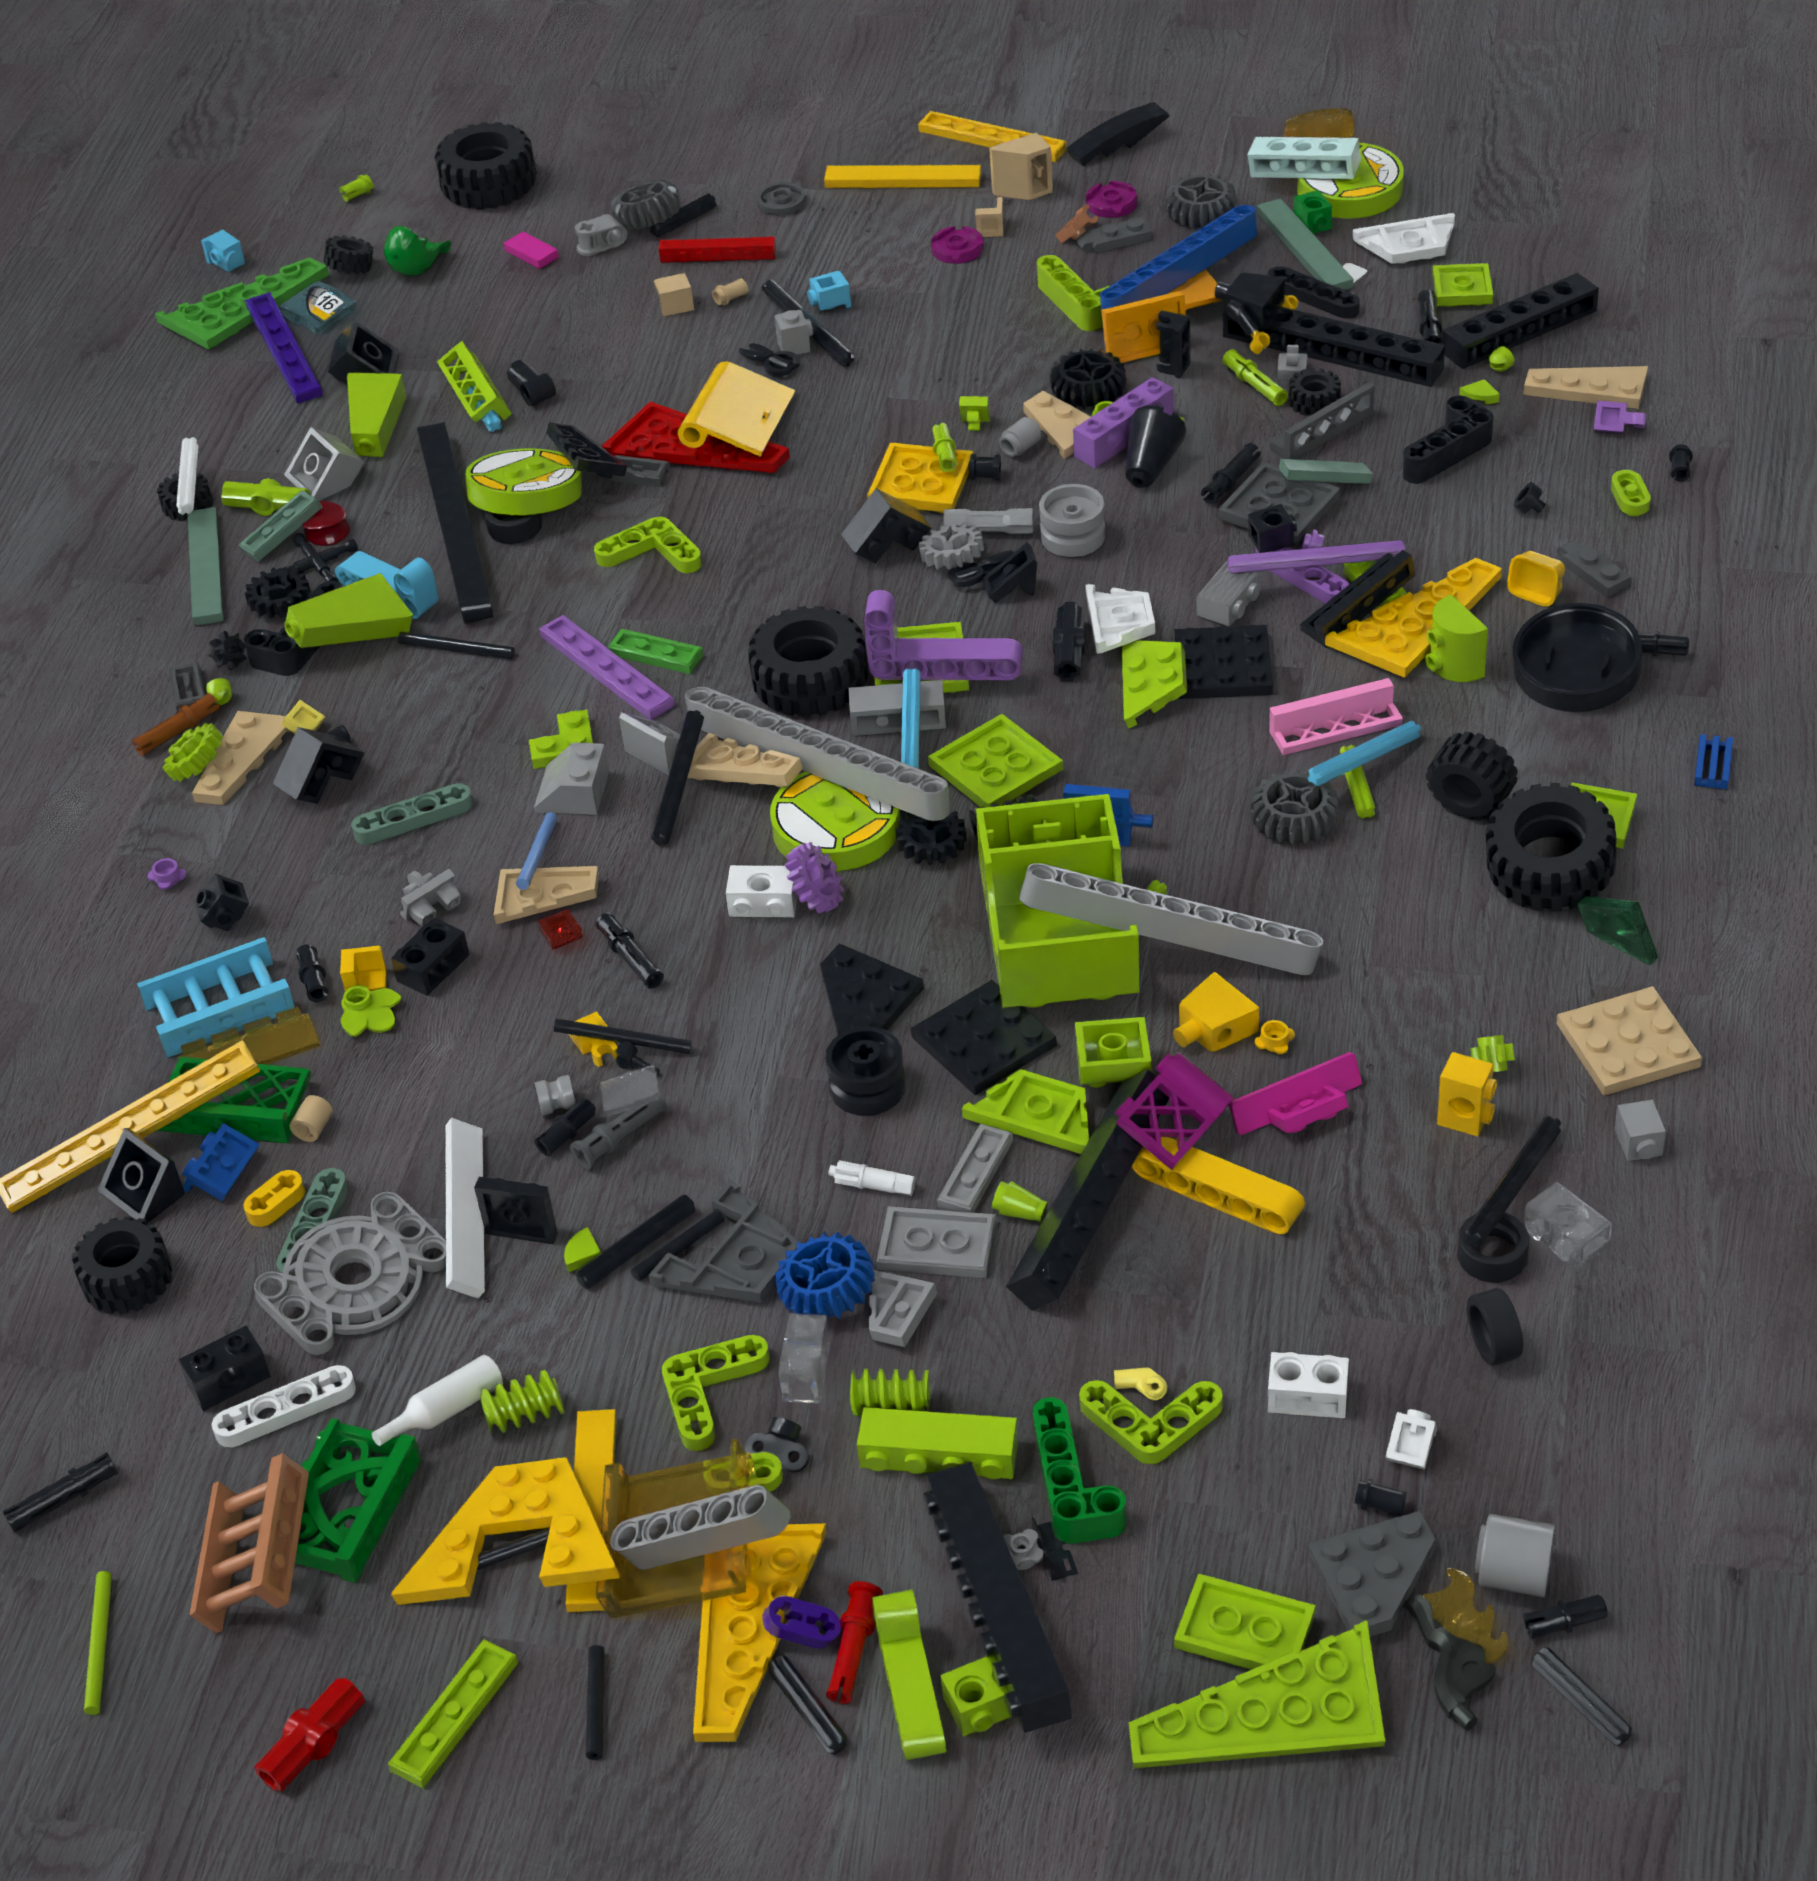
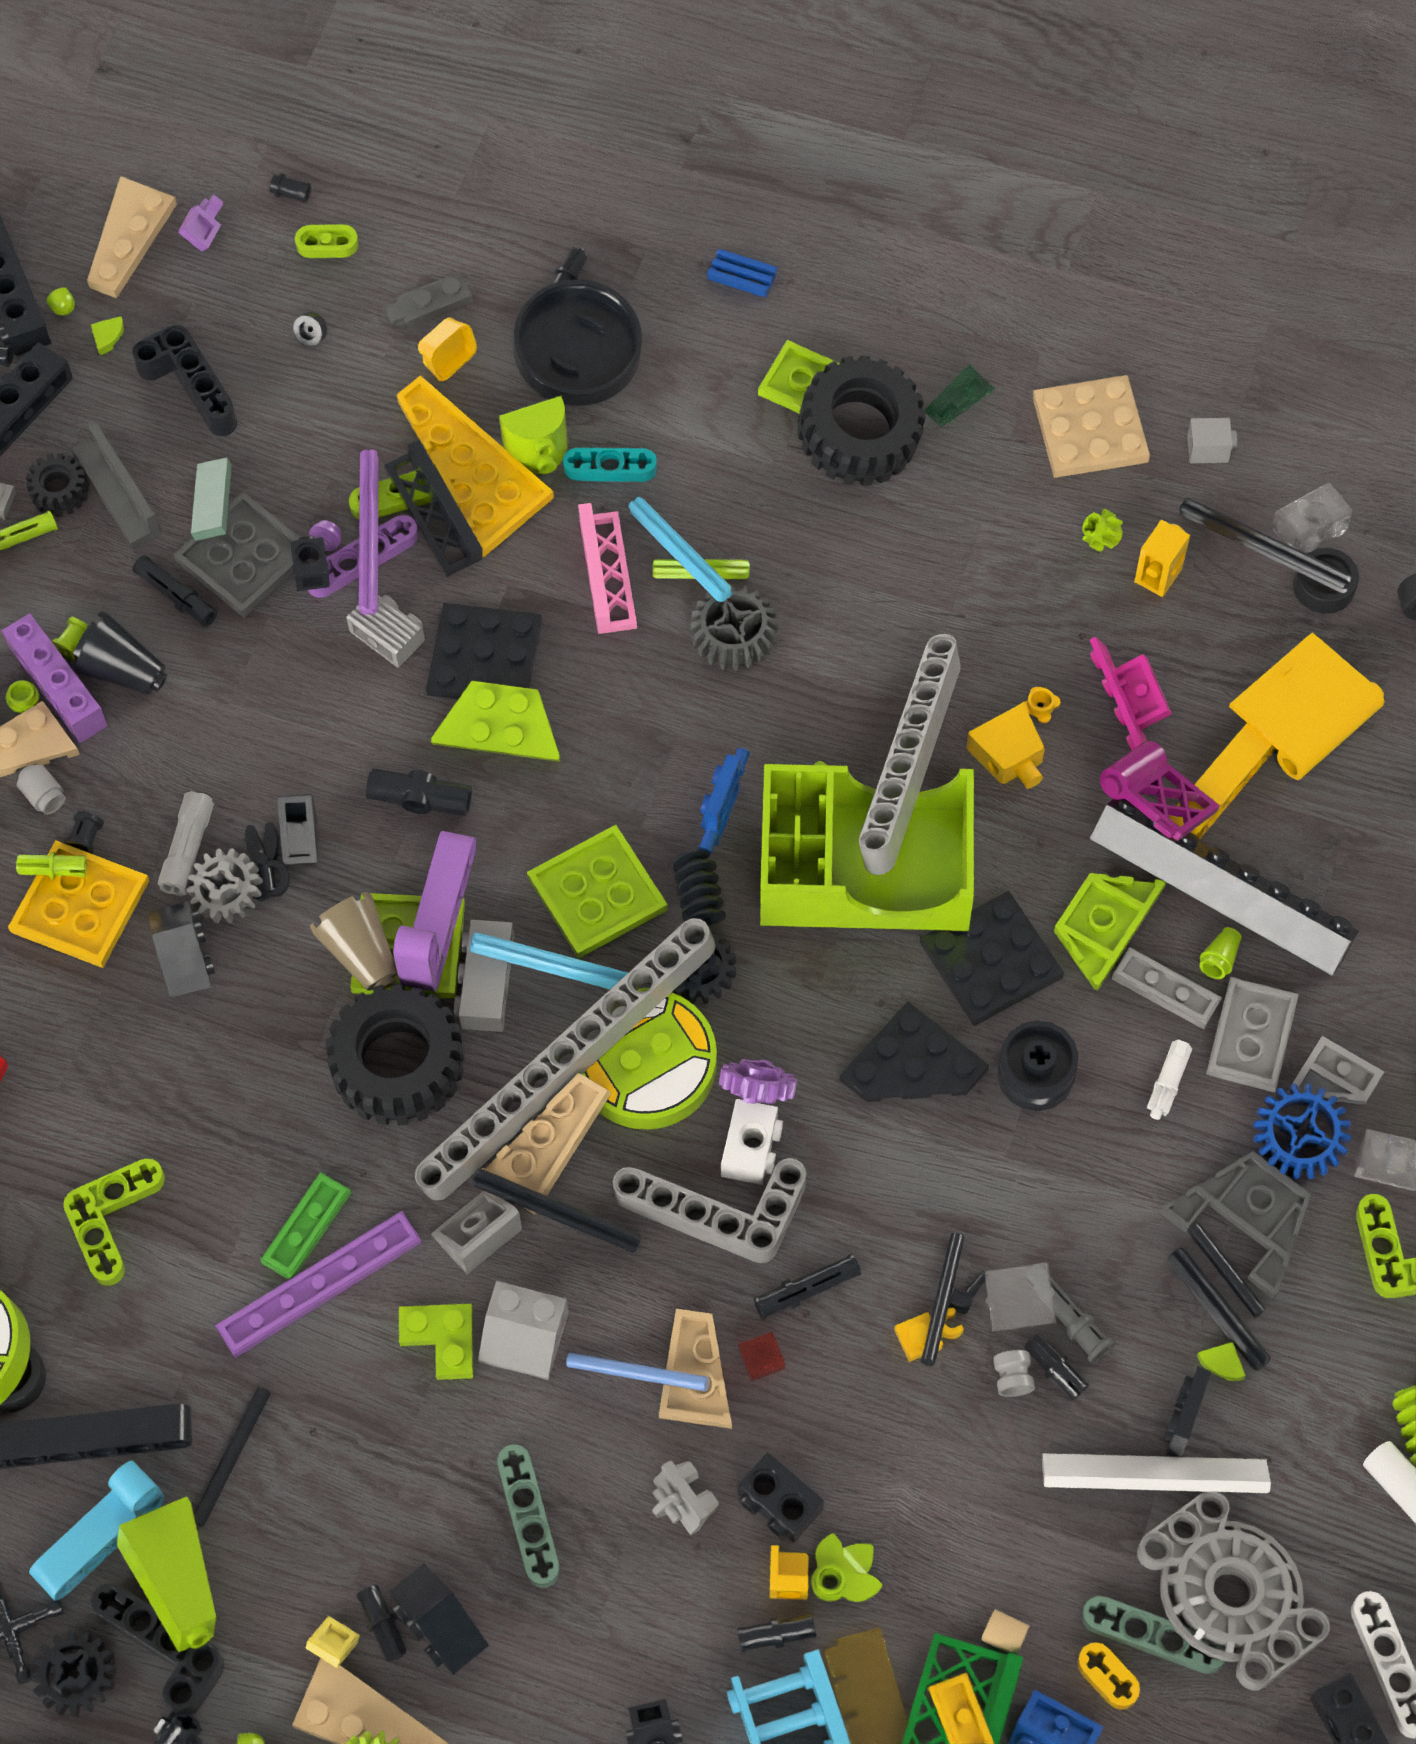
camera: 85 degrees left, 20 degrees up
(675, 900) = (716, 1213): none -> light grey beam
(914, 604) = (358, 941): none -> dark tan cone
(1072, 520) = (224, 754): light grey wheel -> none
(1111, 1050) = (1061, 838): lime brick -> none
(1119, 617) = (393, 738): white wing -> none
(1323, 1237) = (1308, 705): none -> yellow door
(1455, 696) = (620, 474): none -> teal beam
(1471, 775) = (749, 462): black tyre -> none

